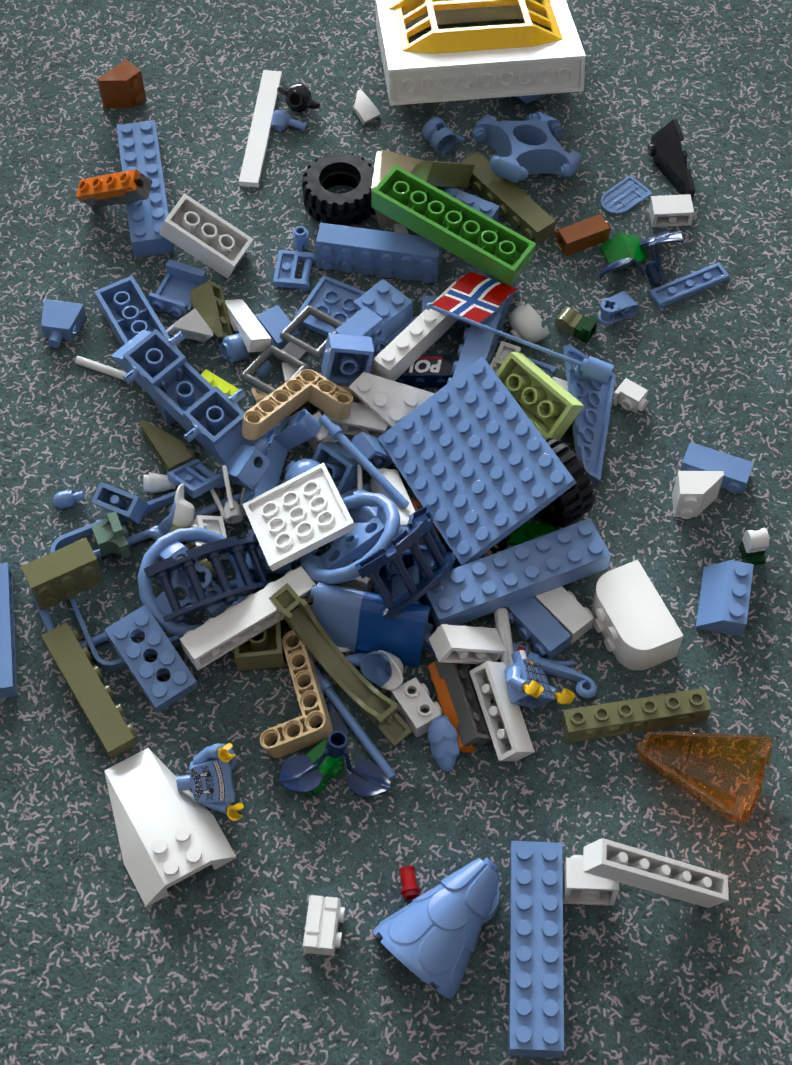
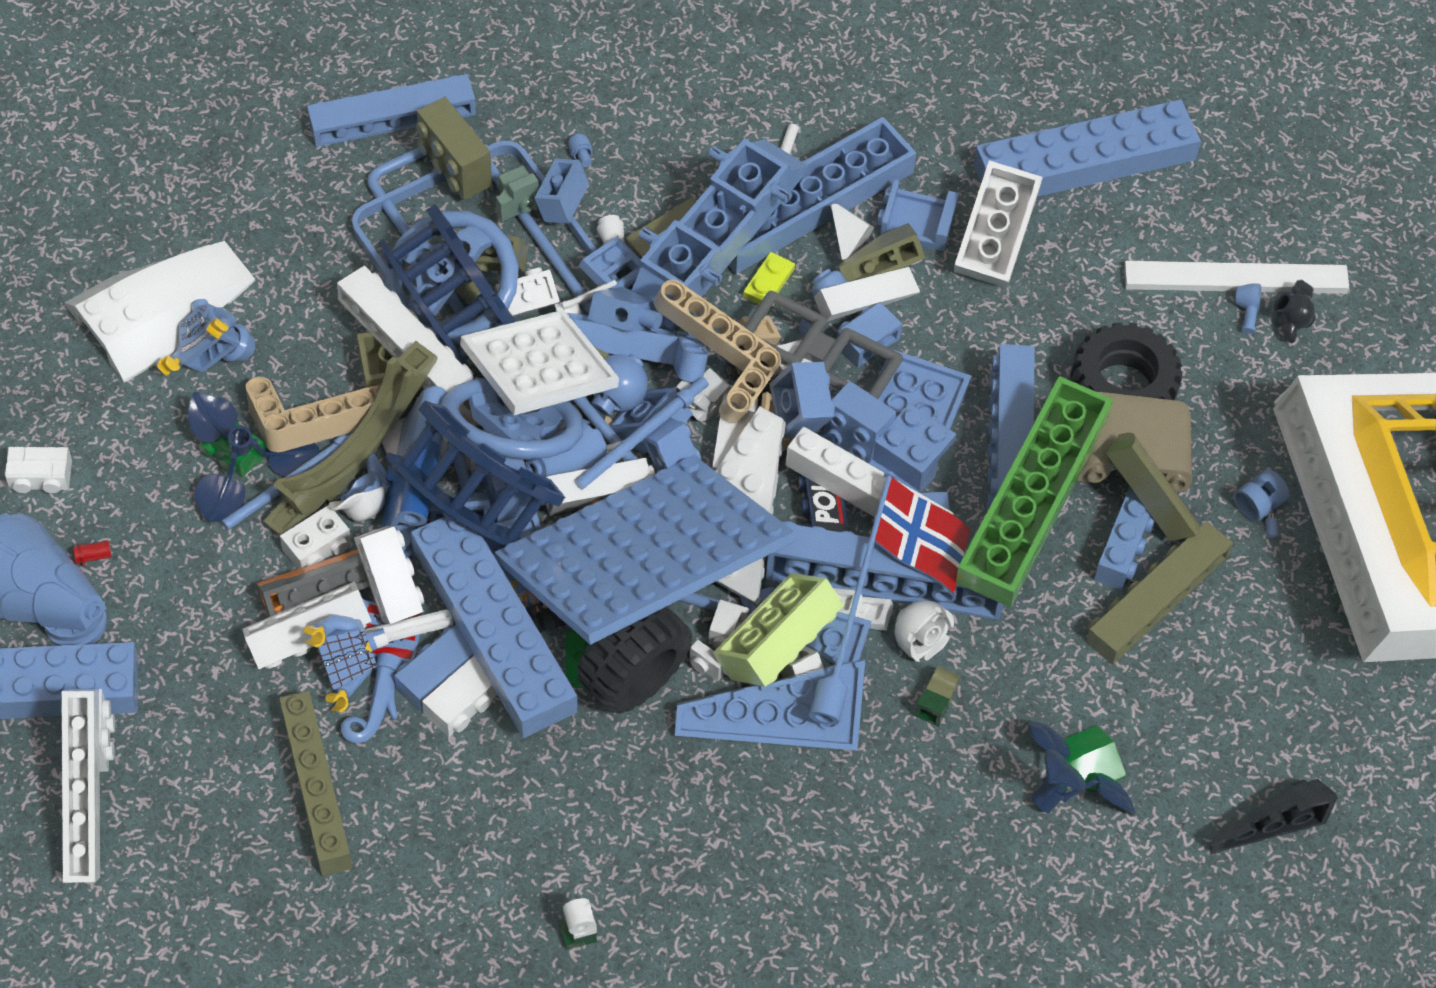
camera: 80 degrees right, 0 degrees up
(61, 321) = (844, 97): medium blue torso -> none
(89, 691) = (316, 204): olive brick -> none
(114, 188) = (1055, 108): orange piece -> none
(122, 86) = (1259, 97): dark orange slope -> none
(155, 643) = (349, 249): medium blue brick -> none
(180, 515) = (550, 252): white hair -> none
(287, 268) = (975, 335): medium blue plate -> none
(300, 235) = (1032, 337): medium blue pin -> none
(443, 742) = (266, 566): medium blue arm -> none
(526, 147) = (1270, 582): medium blue piece -> none
(583, 235) = (1107, 697): dark orange brick -> none
(617, 308) = (976, 746): medium blue piece -> none
(624, 196) = (1204, 757): medium blue window -> none
(630, 396) = (817, 767): white brick -> none
(634, 618) = (451, 769): white brick -> none
(671, 210) = (1179, 816): white brick -> none
(689, 285) = (1042, 848): medium blue tile -> none
(695, 492) = (651, 842): white slope -> none
(706, 459) = (707, 880): medium blue brick -> none
(712, 768) = (230, 867): clear orange cone -> none
(725, 597) = (498, 894): medium blue slope -> none

